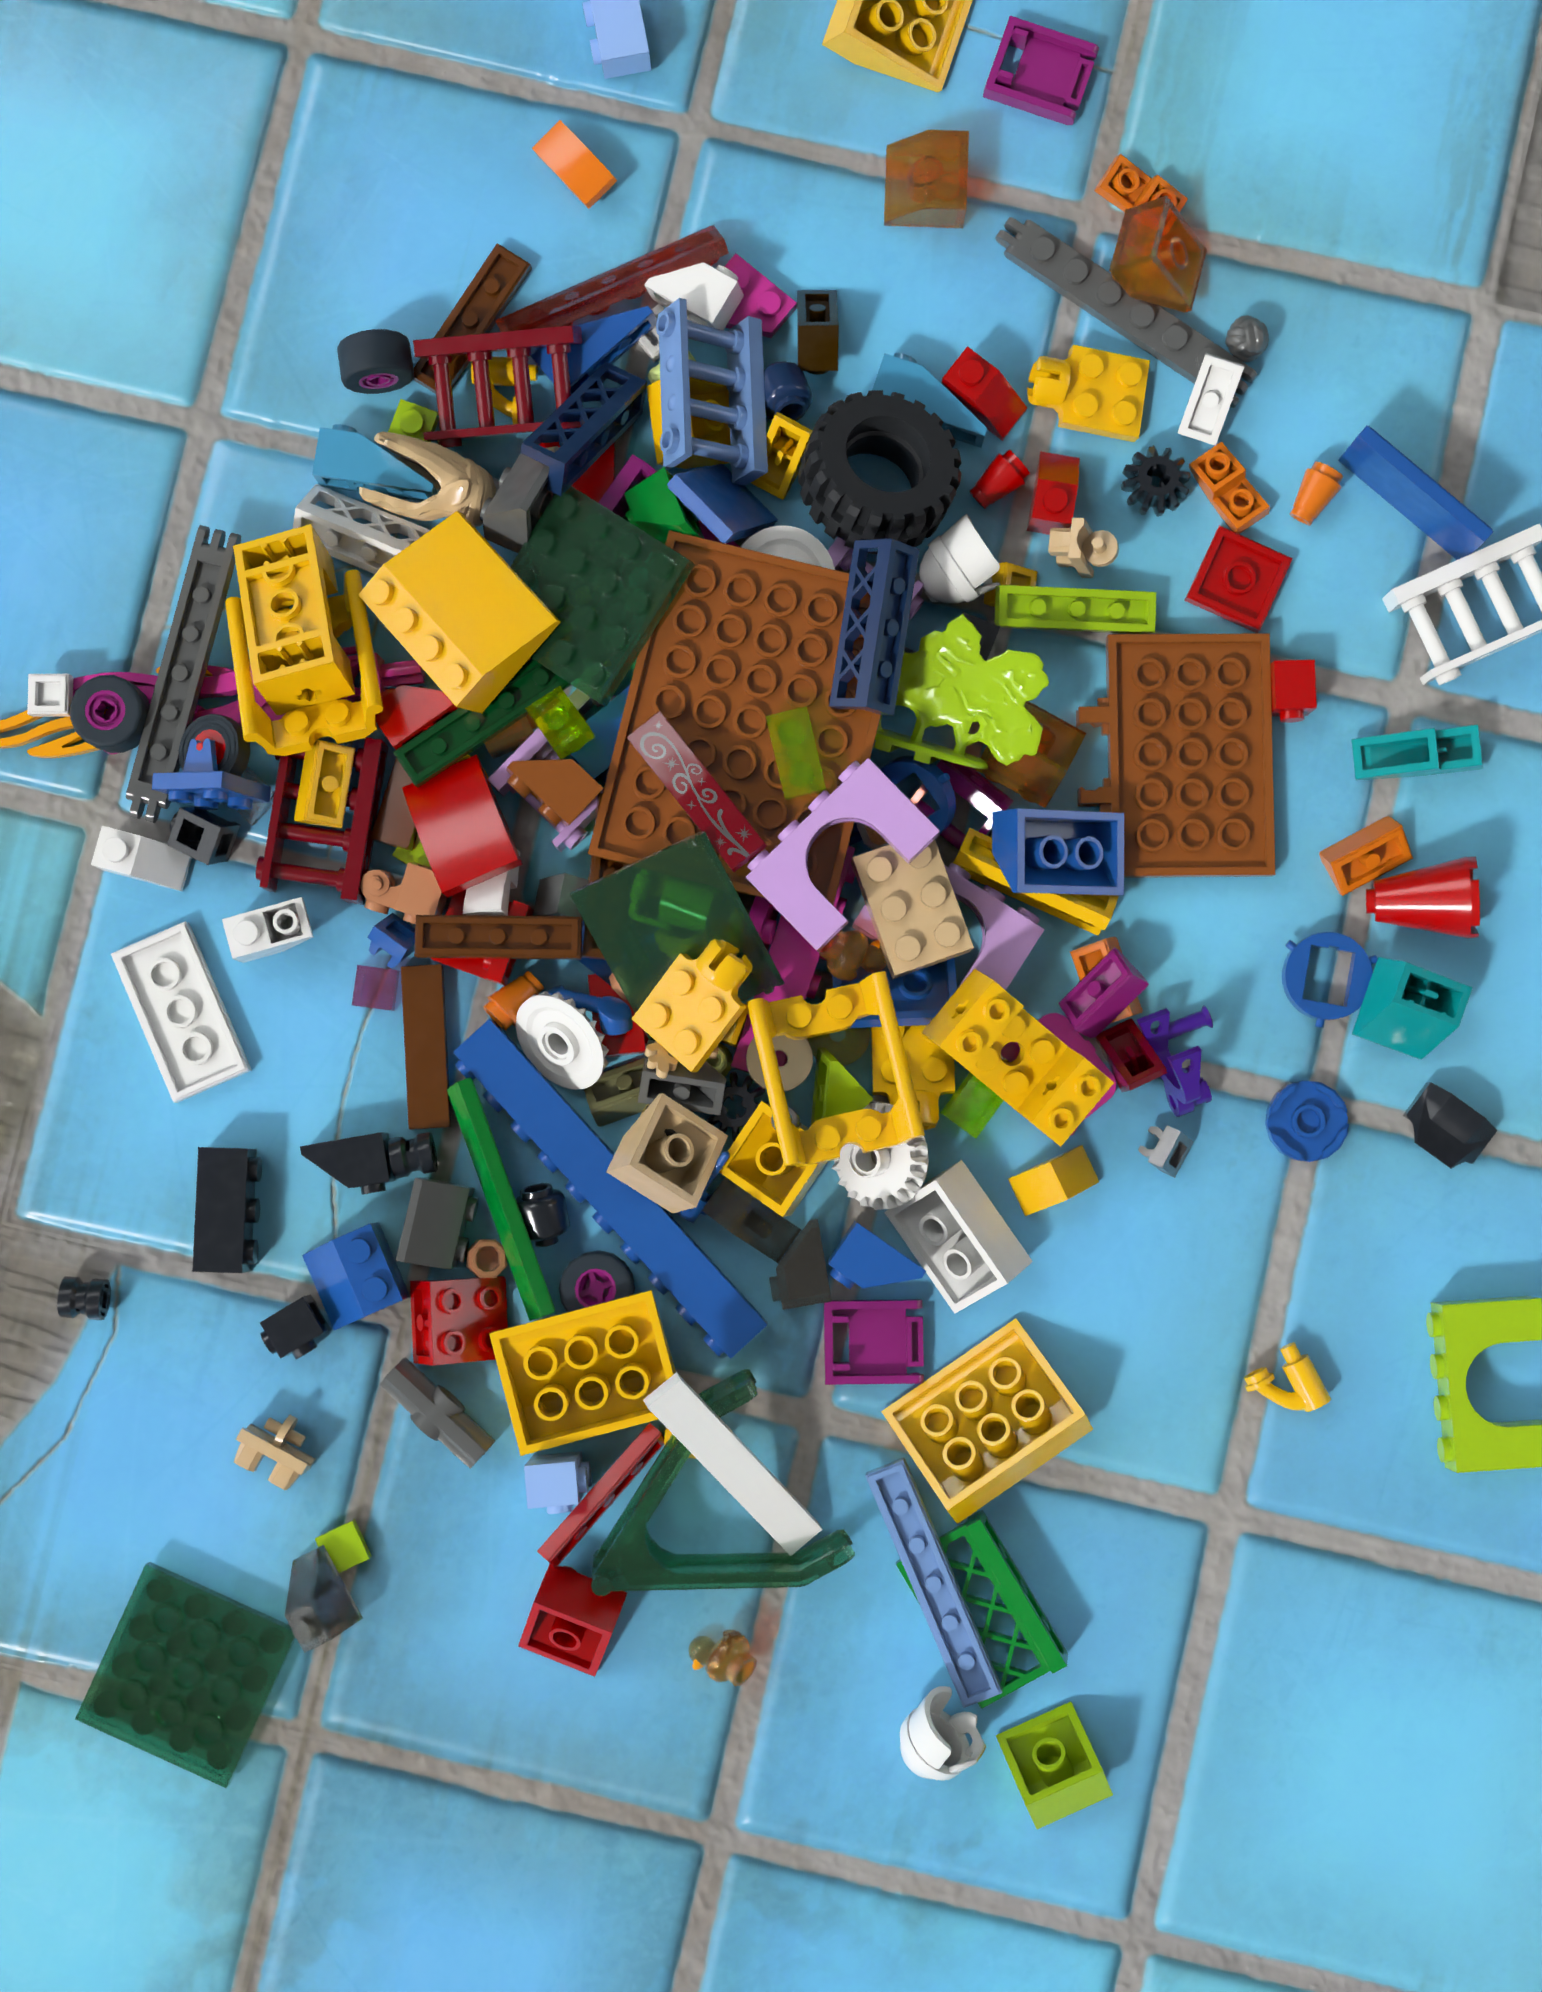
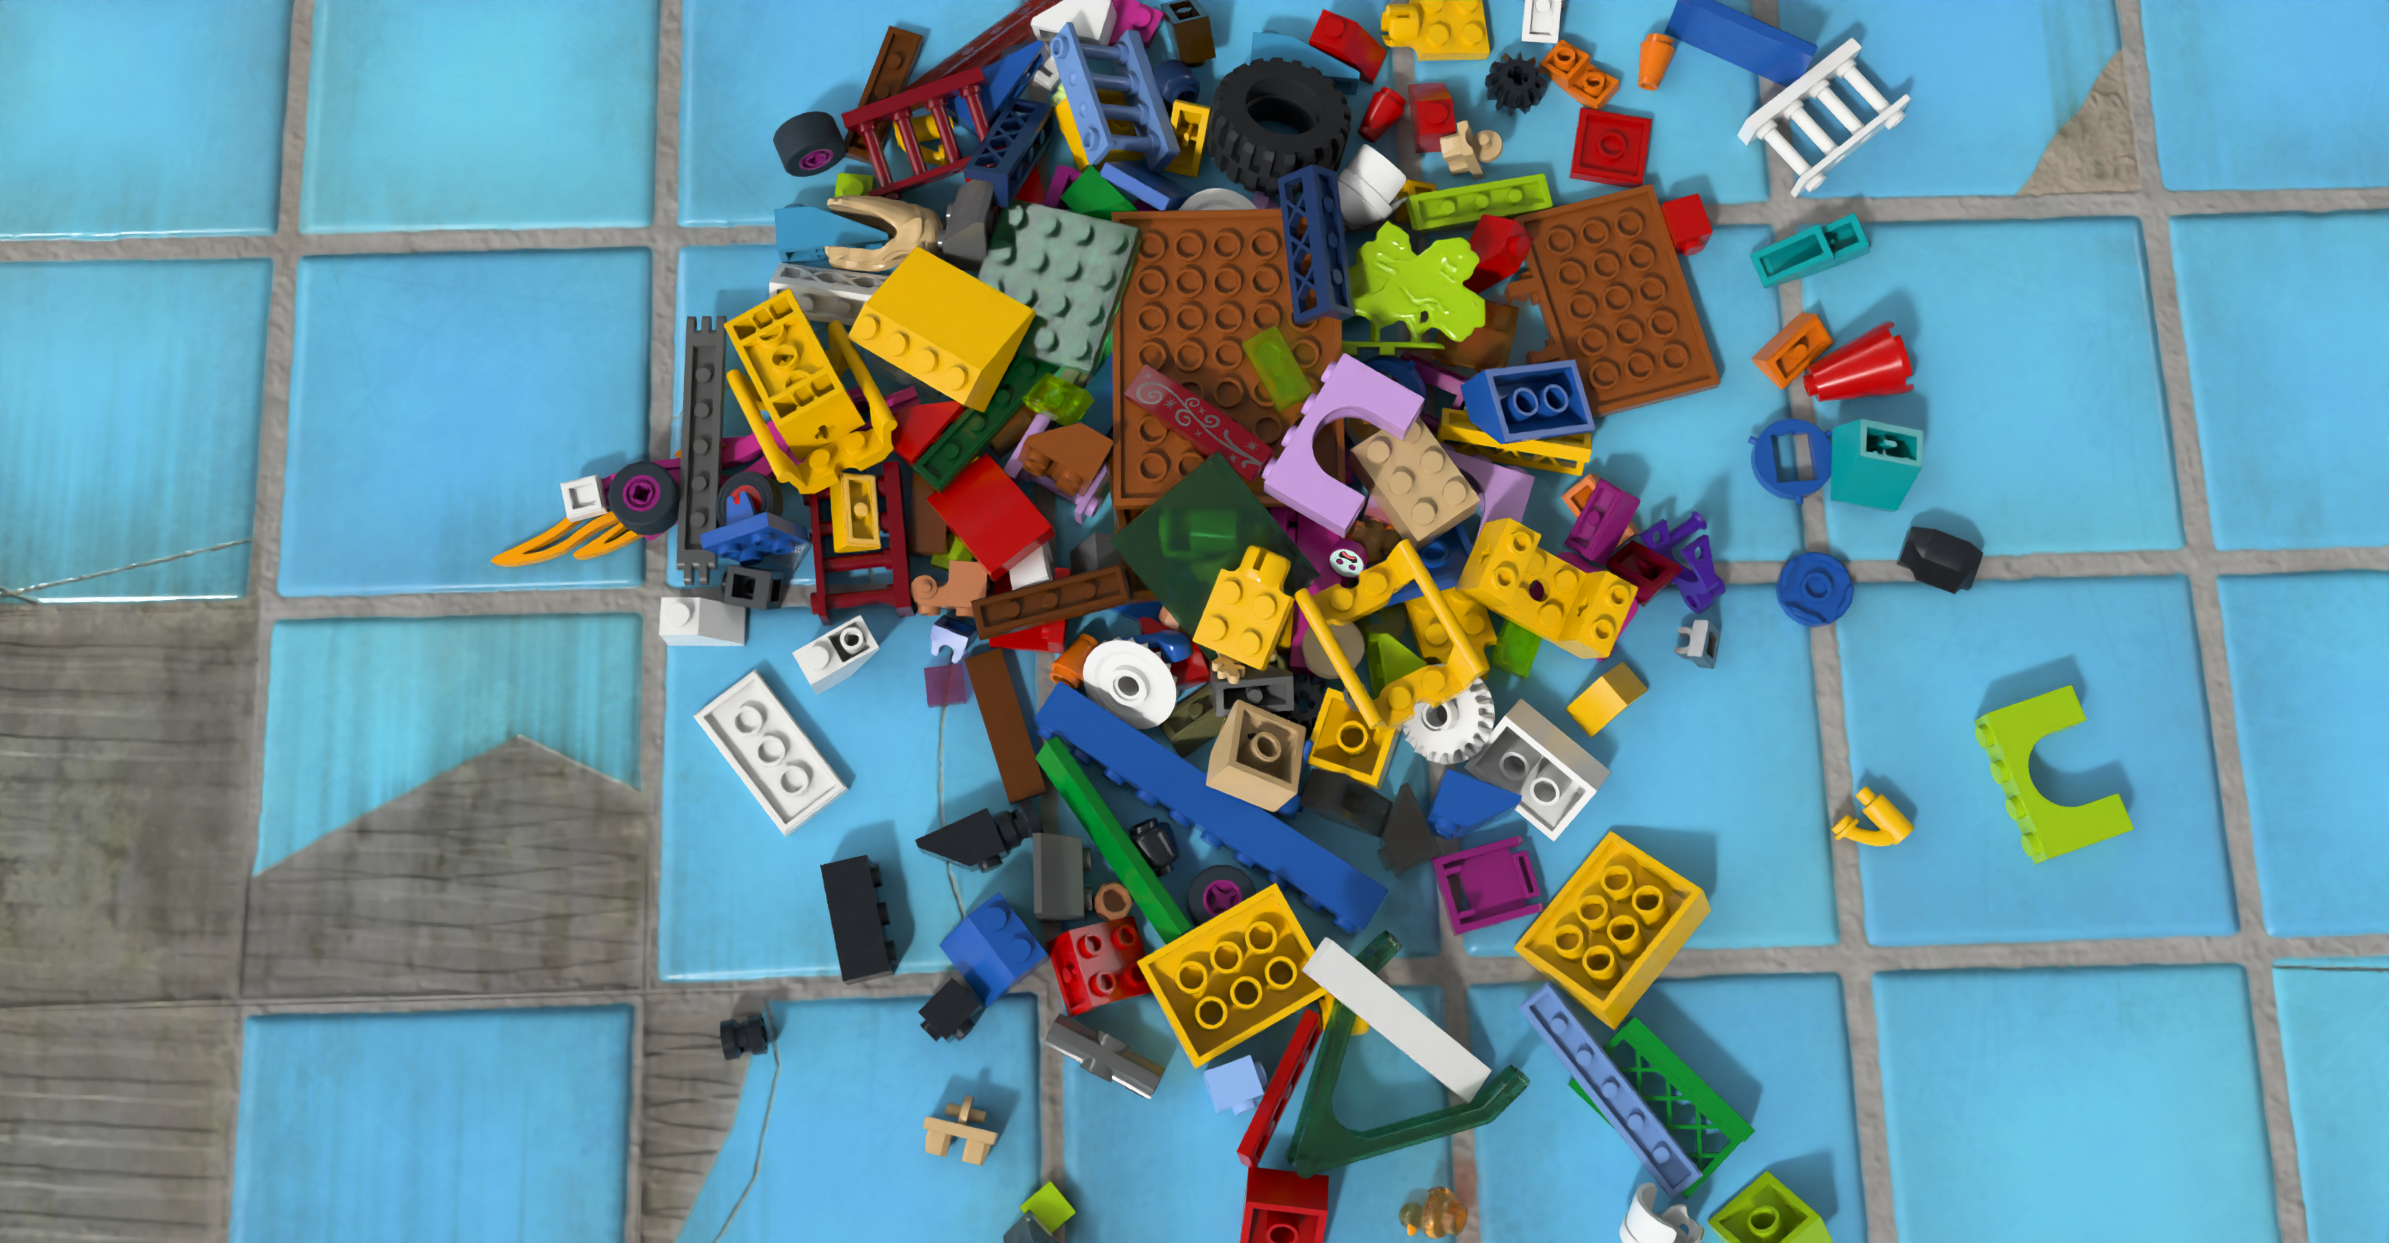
camera: 20 degrees left, 10 degrees down
(820, 970) = (1348, 558): none -> tile
(1076, 669) = (1500, 249): none -> red slope

